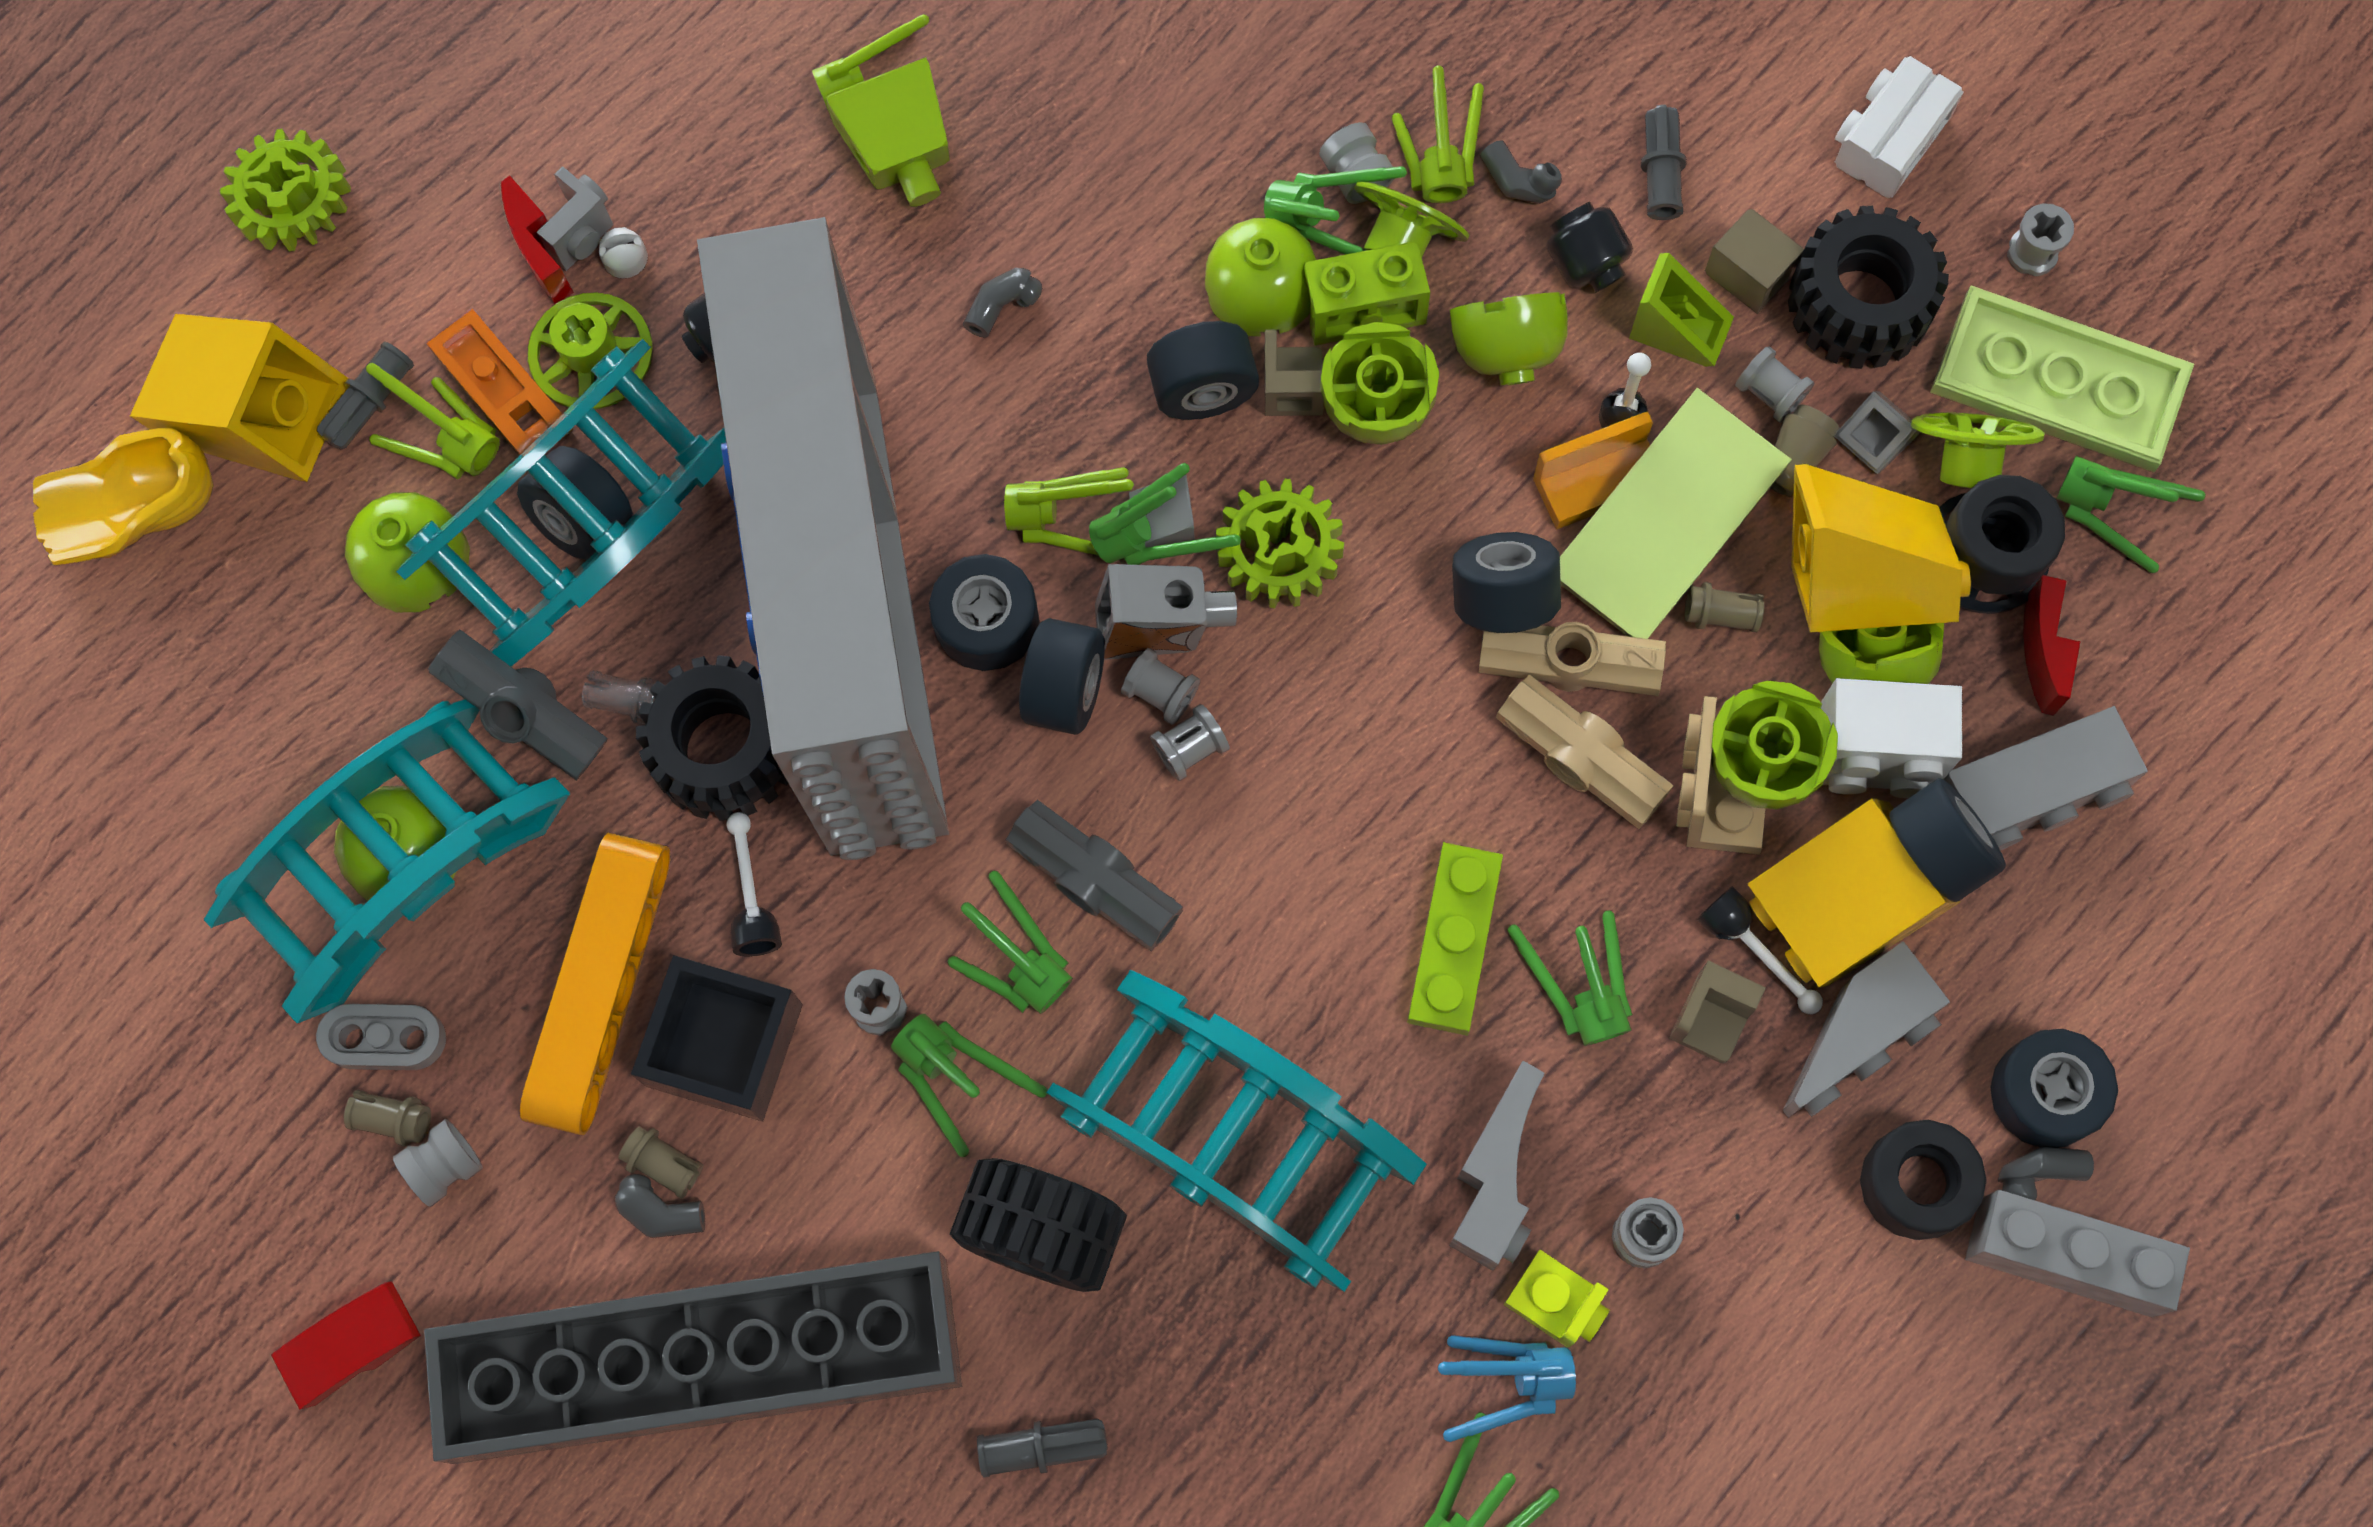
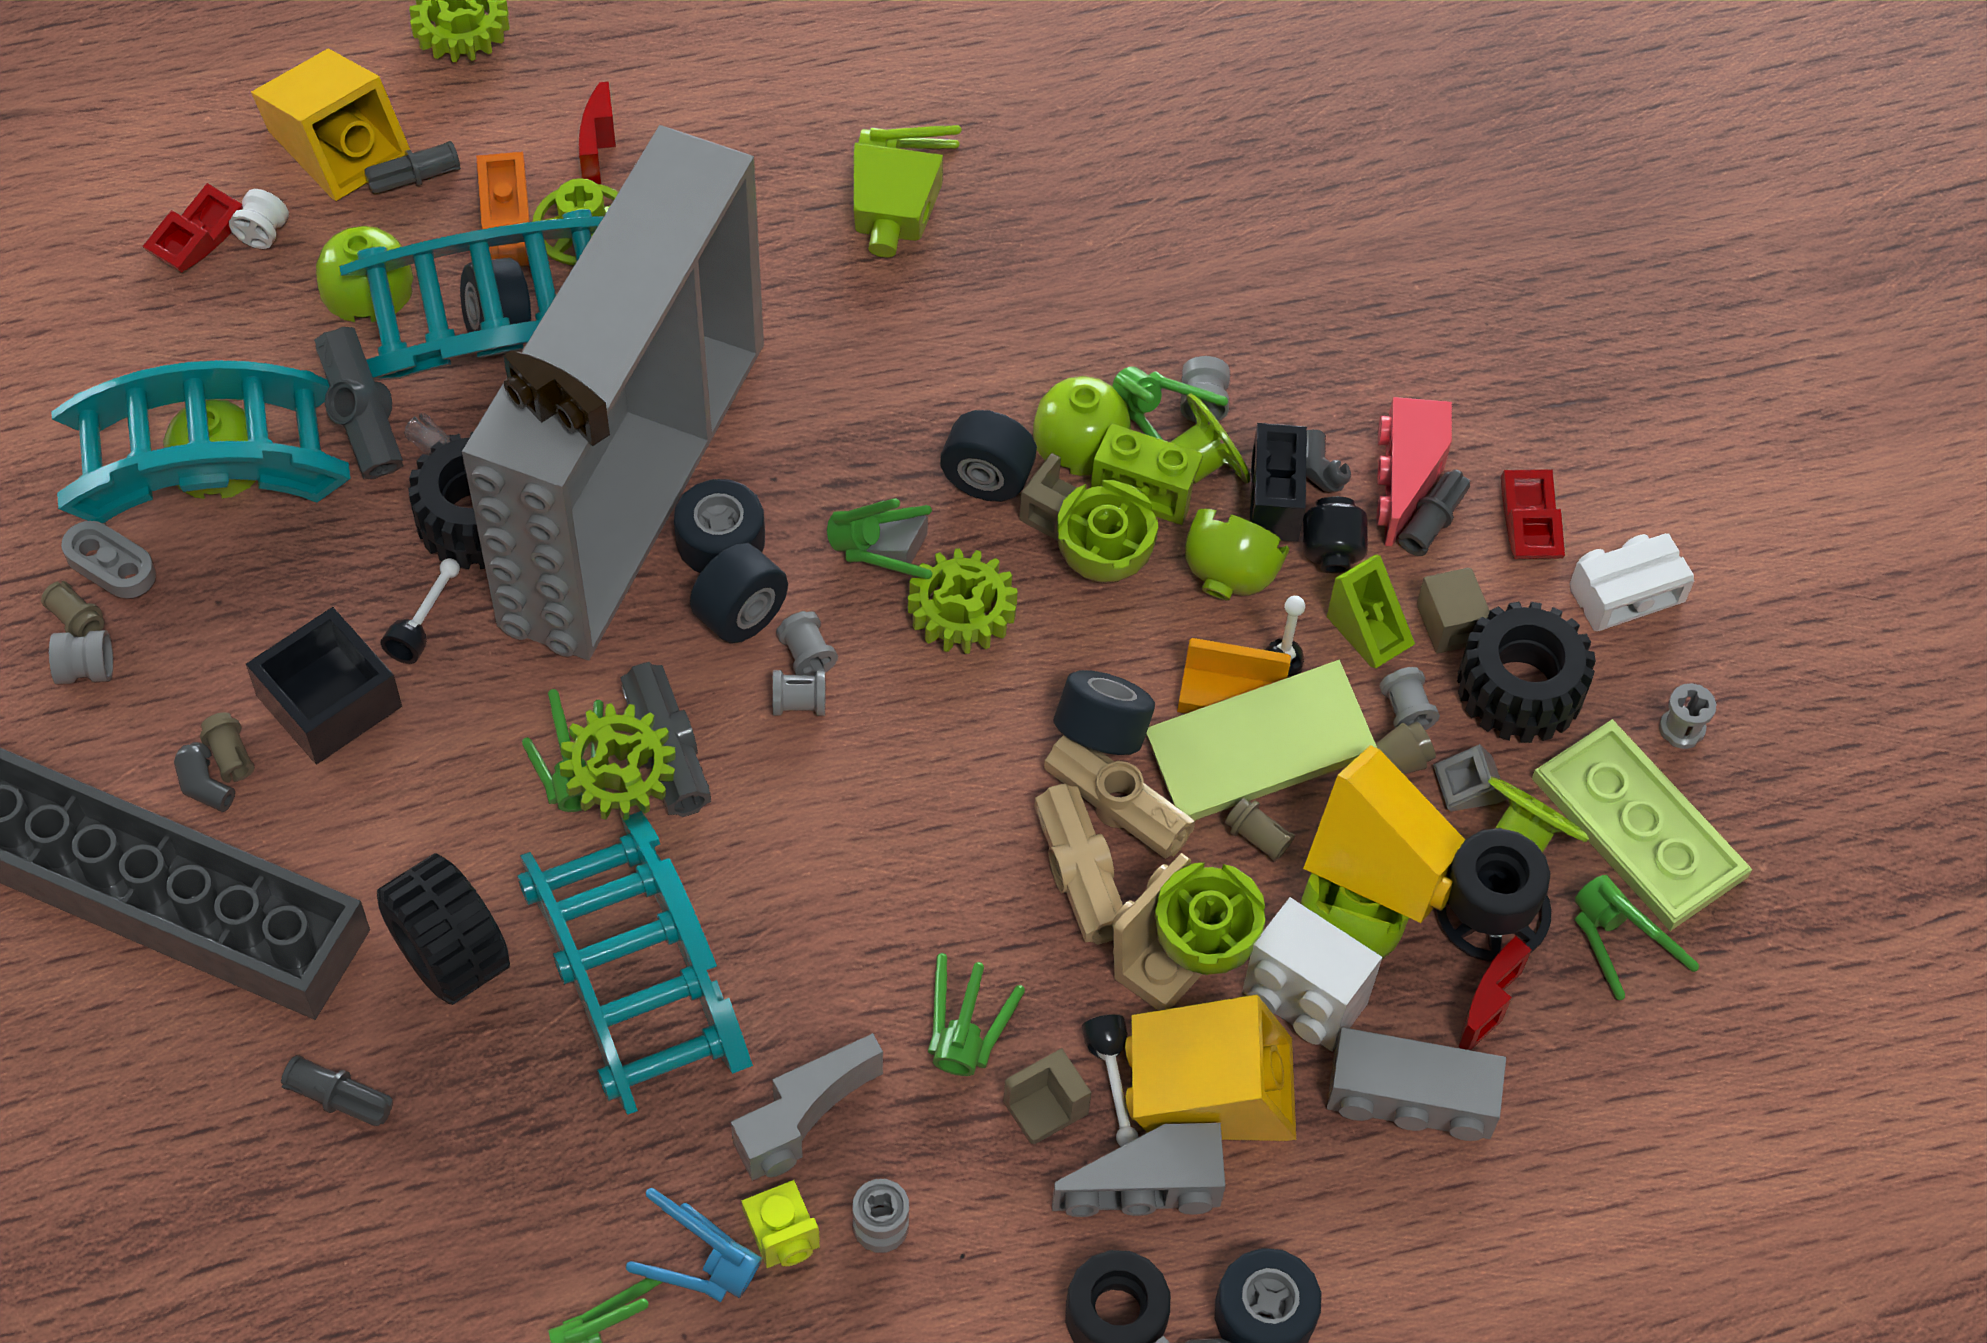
camera: 25 degrees right, 15 degrees down
(127, 491) = (225, 140): yellow hair -> none
(185, 607) = (197, 232): none -> red slope
(246, 555) = (259, 218): none -> white wheel
(465, 443) = (451, 219): lime plant -> none
(579, 224) = (627, 138): light grey bracket -> none
(595, 984) = (272, 608): light orange beam -> none
(815, 635) = (553, 391): none -> dark brown slope
(870, 984) = (456, 726): light grey bush -> none
(929, 1051) = (462, 787): bright green plant -> none
(998, 292) = (884, 336): dark grey arm -> none
(1034, 504) = (809, 481): lime plant -> none
(1107, 948) = (601, 774): none -> lime gear
(1158, 609) = (839, 588): light grey torso -> none
(1443, 172) = (1269, 414): lime plant -> none
(1455, 939) = (893, 936): lime plate -> none
(1503, 225) = (1279, 479): none -> black brick
(1605, 108) = (1416, 454): none -> coral slope
(1753, 111) = (1532, 515): none -> red slope
(1947, 840) = (1297, 1061): black wheel -> none

